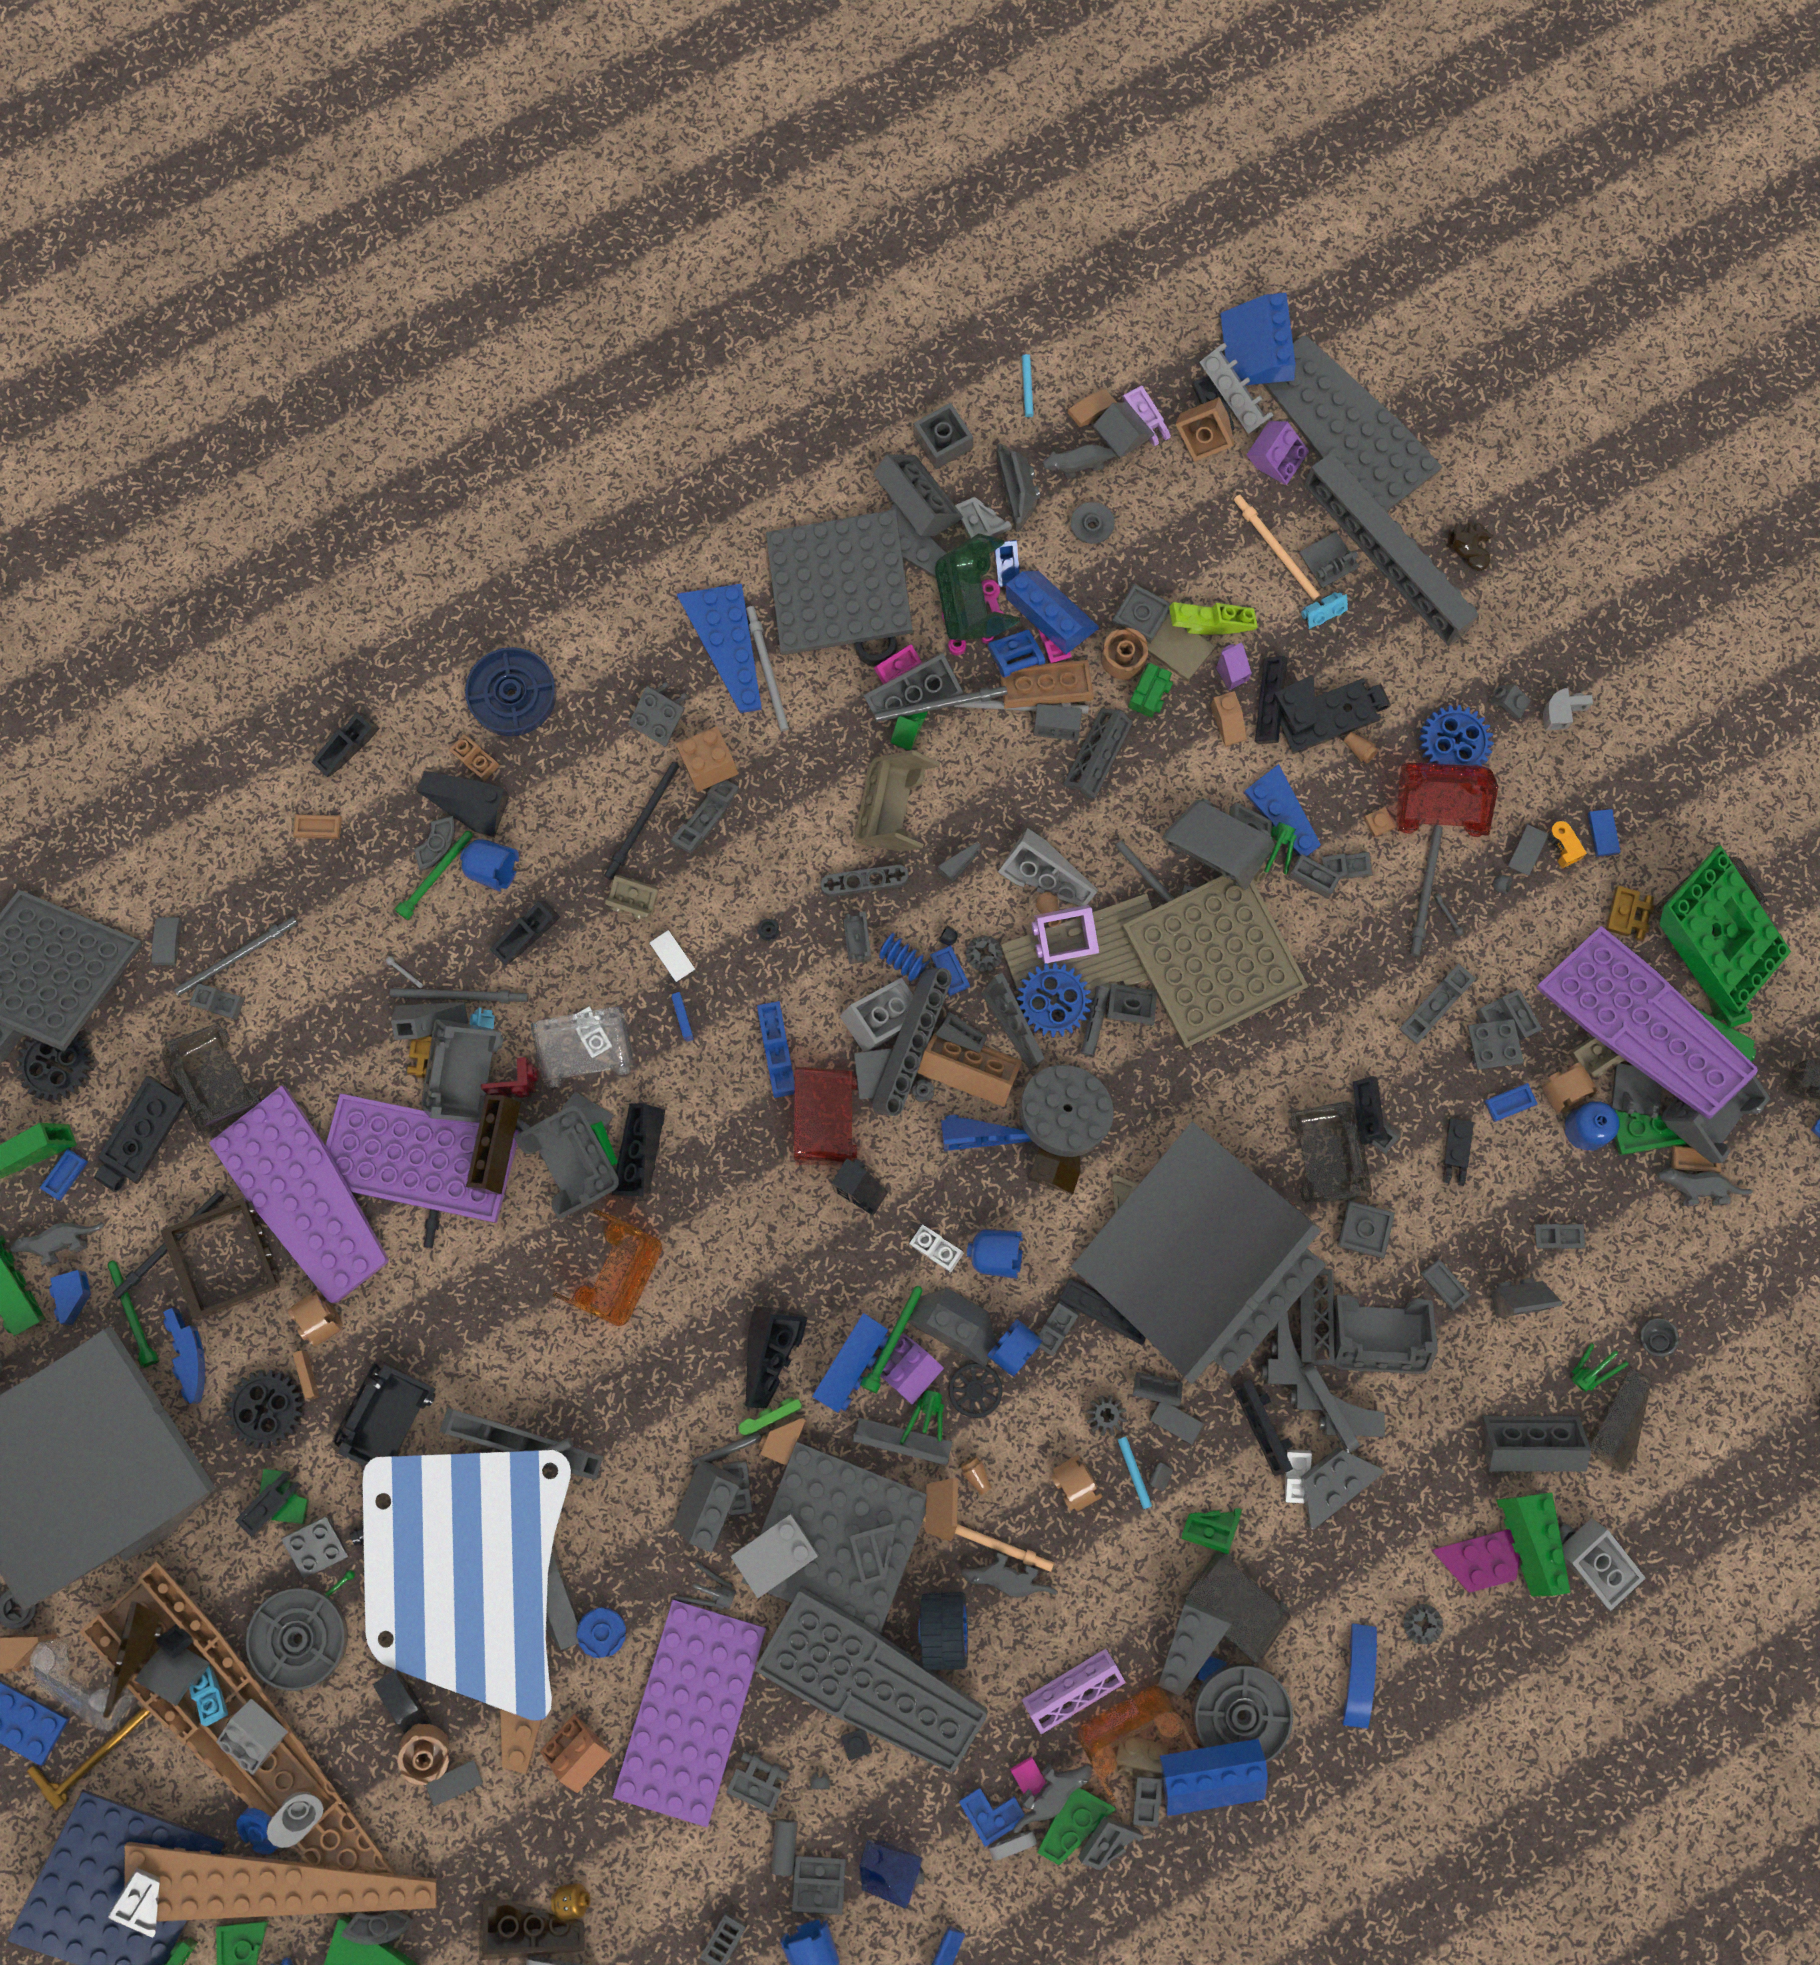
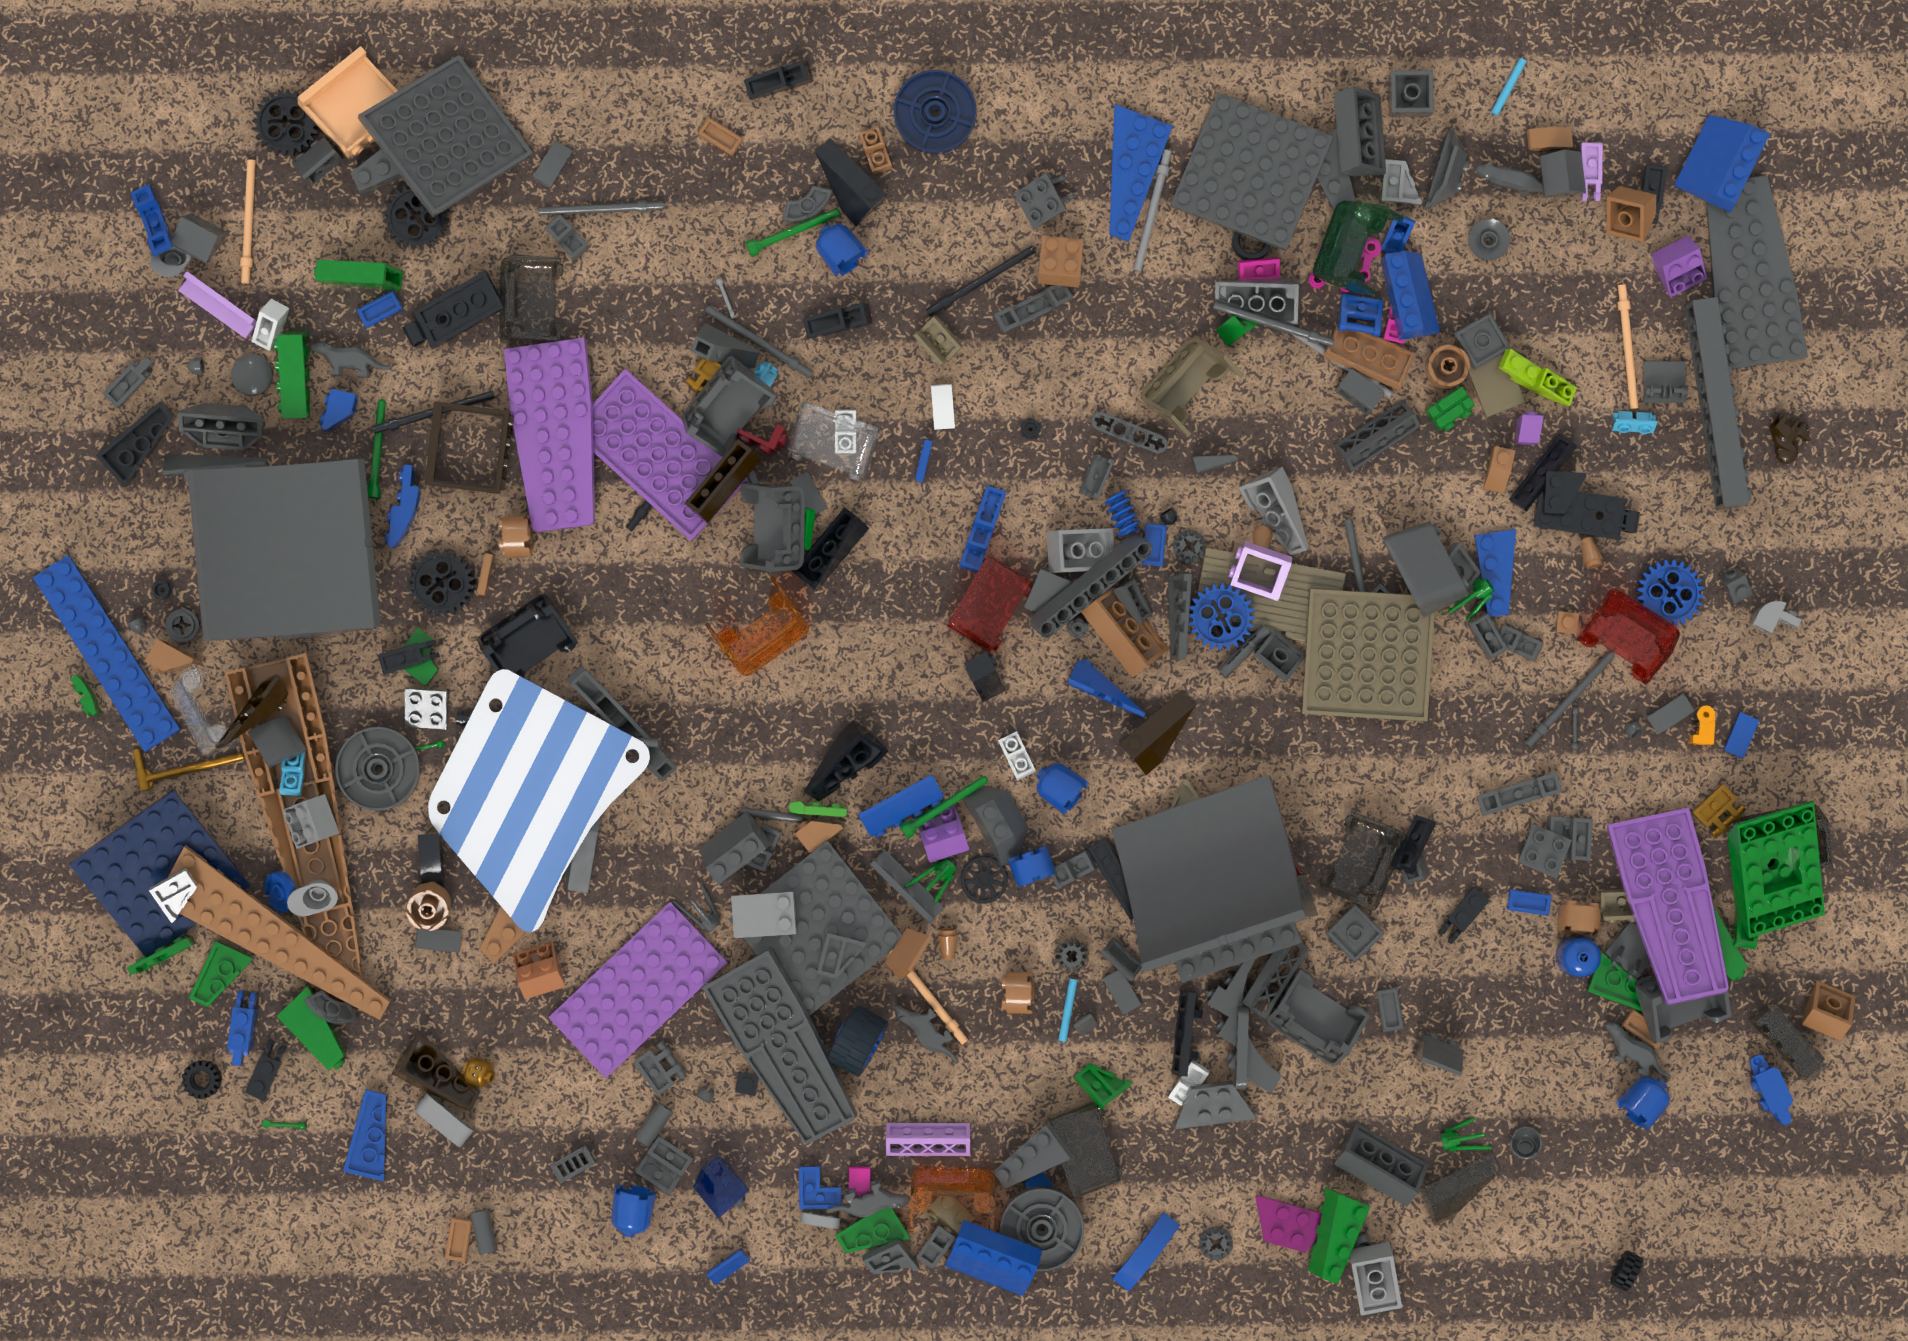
camera: 30 degrees right, 10 degrees up
(174, 1641) = (290, 719): black plate -> none
(601, 1632) = (604, 894): blue tile -> none
(1062, 1131) = (1159, 711): dark grey piece -> none
(1234, 390) = (1675, 193): light grey hinge -> none
(1560, 1236) = (1500, 1025): dark grey slope -> none
(1745, 1228) = (1645, 1101): none -> blue cylinder

